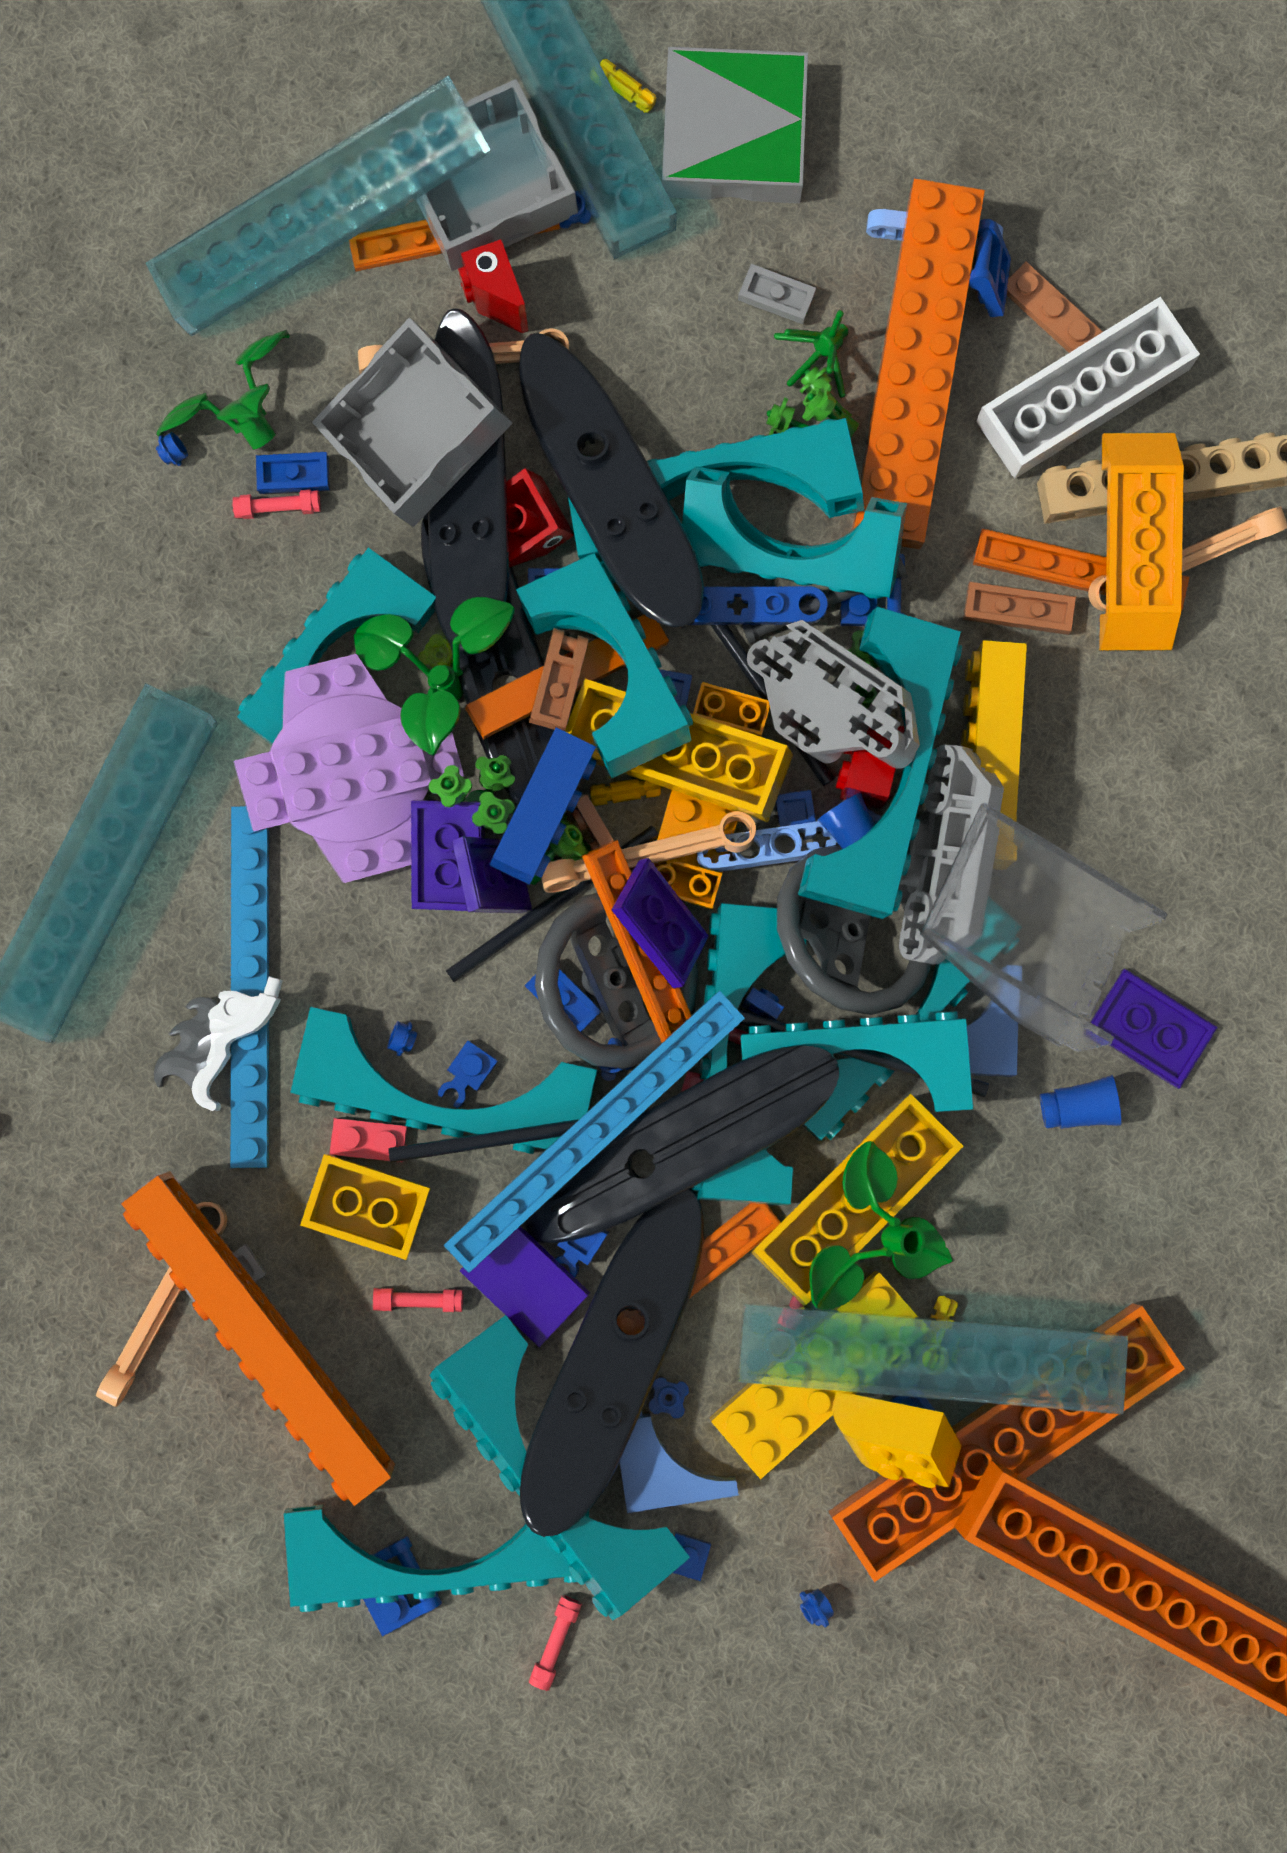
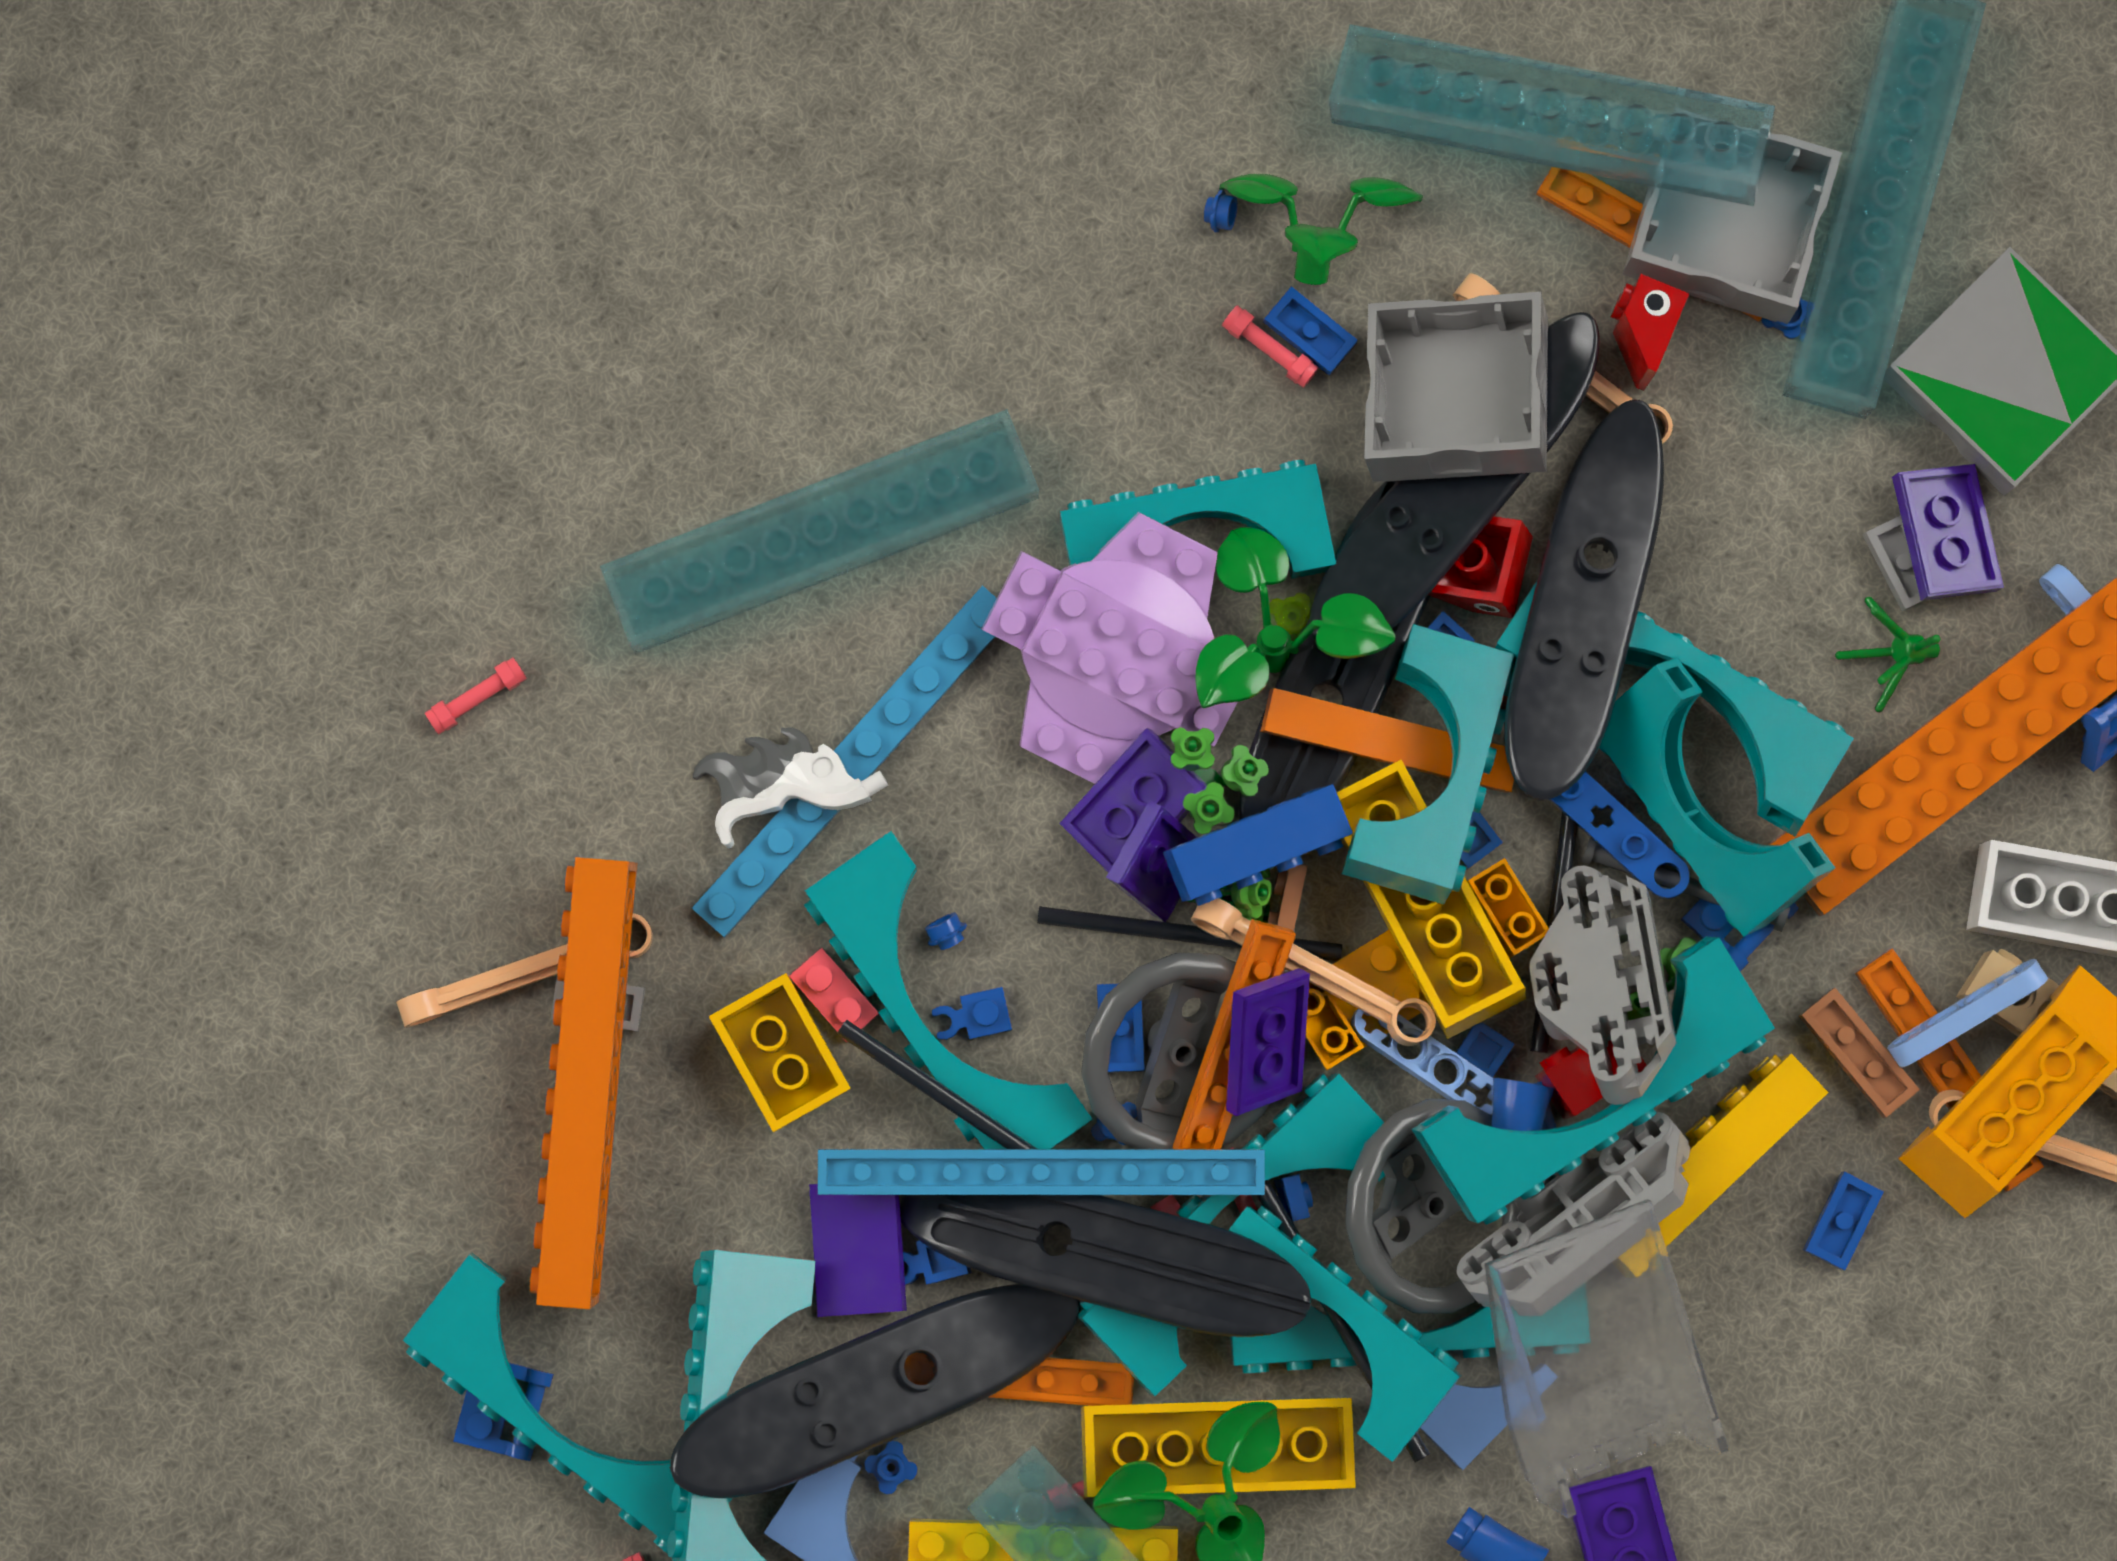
camera: 40 degrees right, 0 degrees up
(385, 1299) = (776, 1202): coral bar -> none
(558, 681) = (1375, 741): nougat plate -> none
(623, 791) = (1344, 890): yellow axle -> none
(628, 87) = (1942, 245): yellow axle -> none
(786, 251) = (1947, 532): none -> tile
(818, 403) = (1842, 702): bright green plant -> none
(1063, 522) = (1967, 1013): none -> light blue beam
(1102, 717) = (1843, 1220): none -> blue plate

